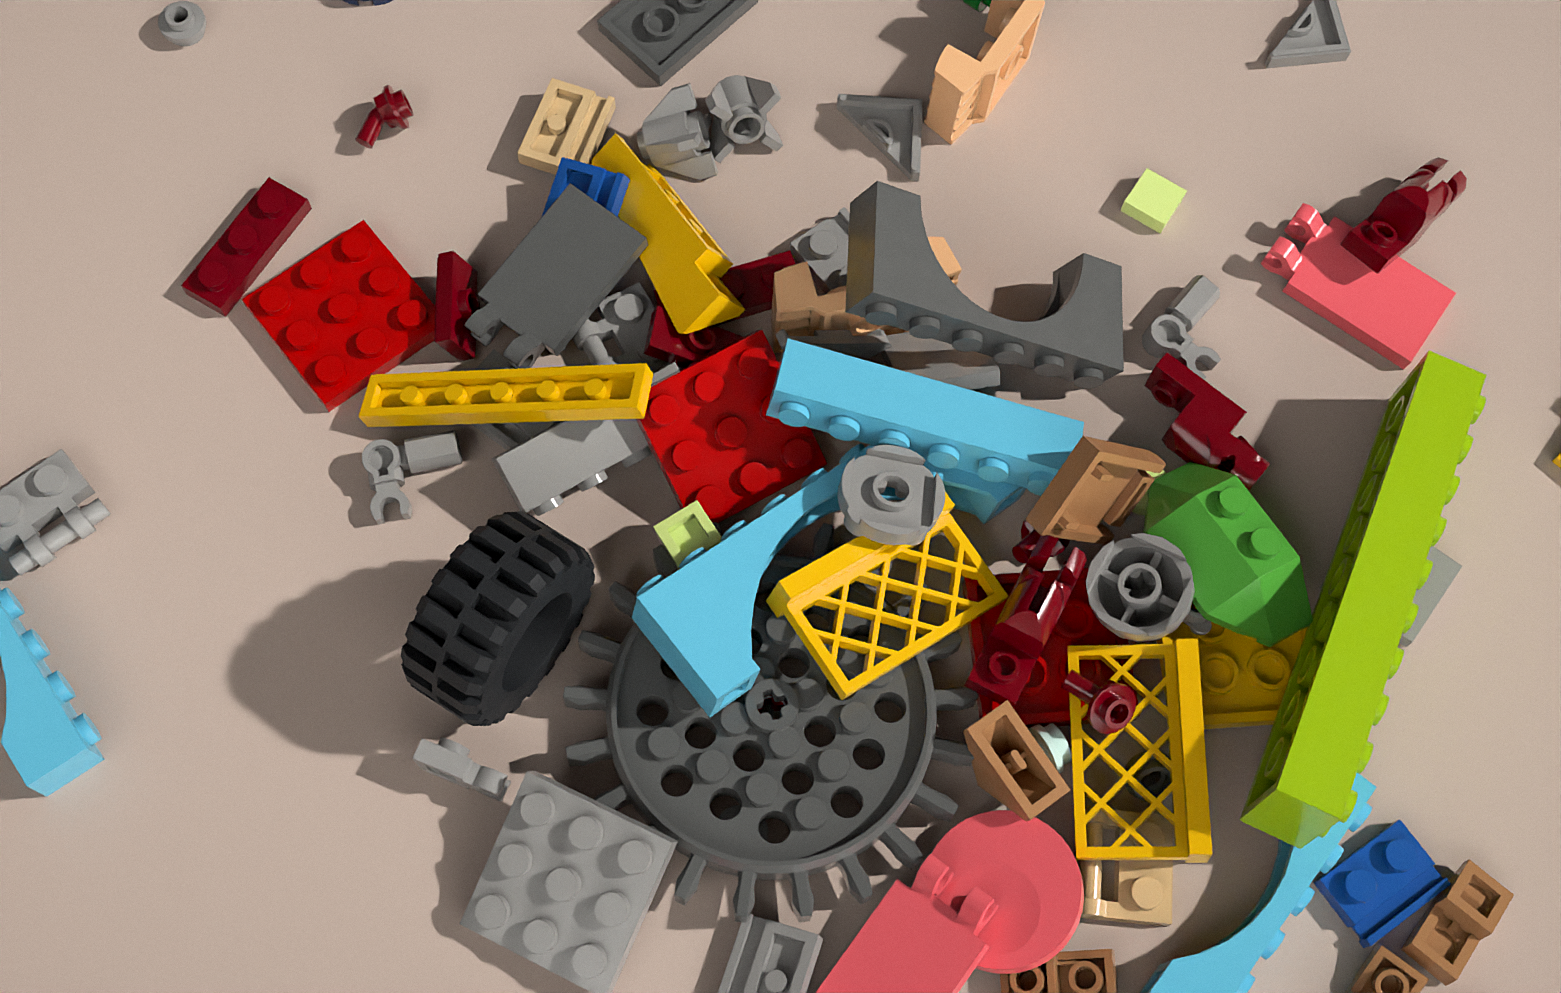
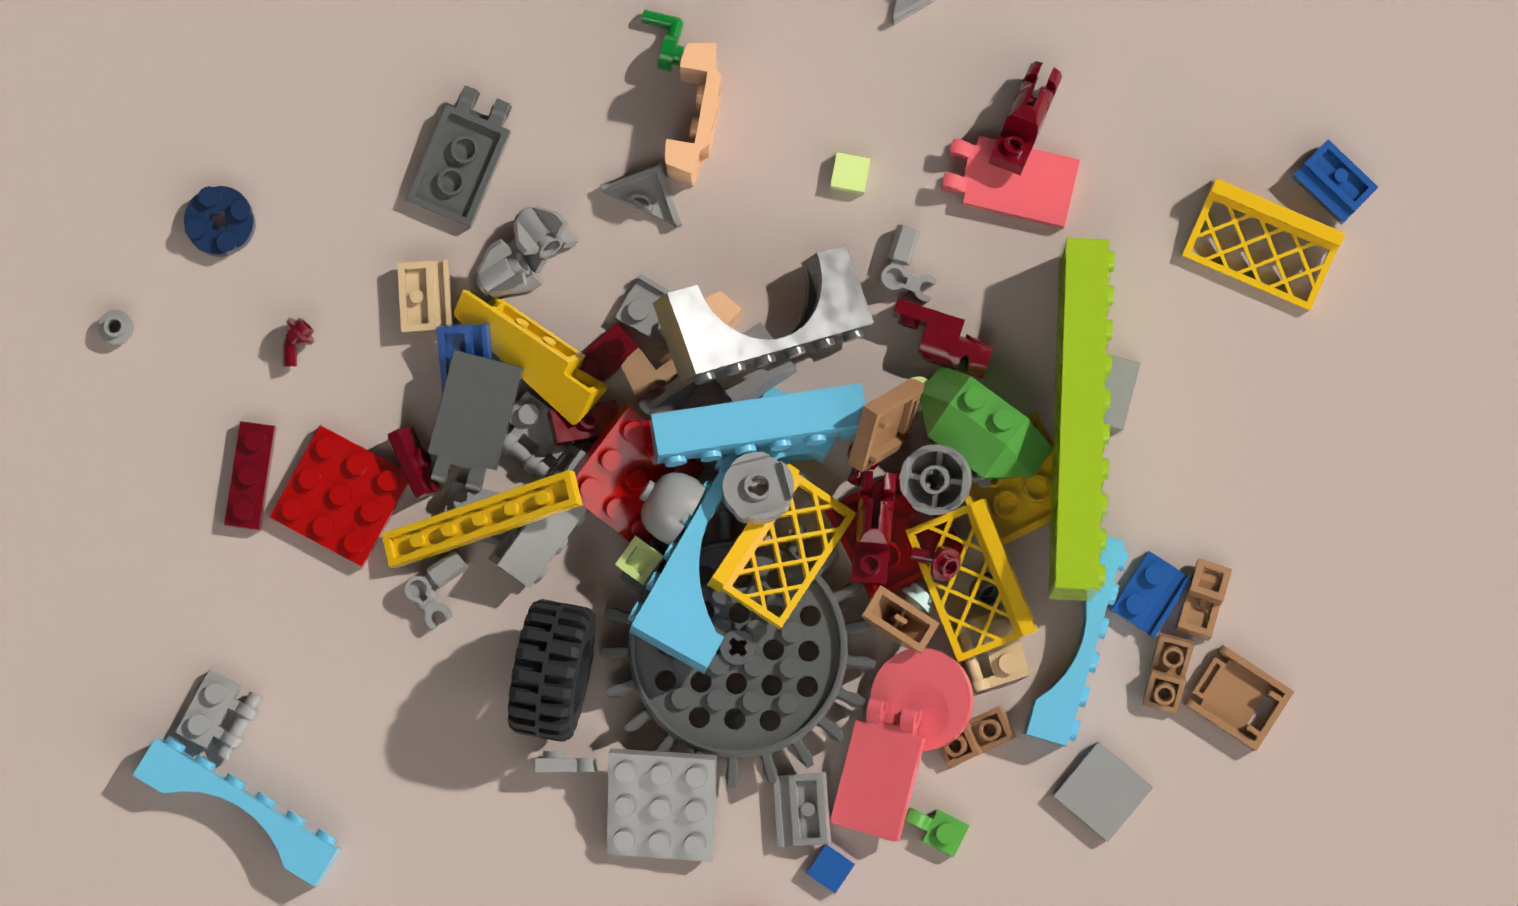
camera: 20 degrees left, 15 degrees up
(760, 470) = (669, 504): none -> light grey cylinder

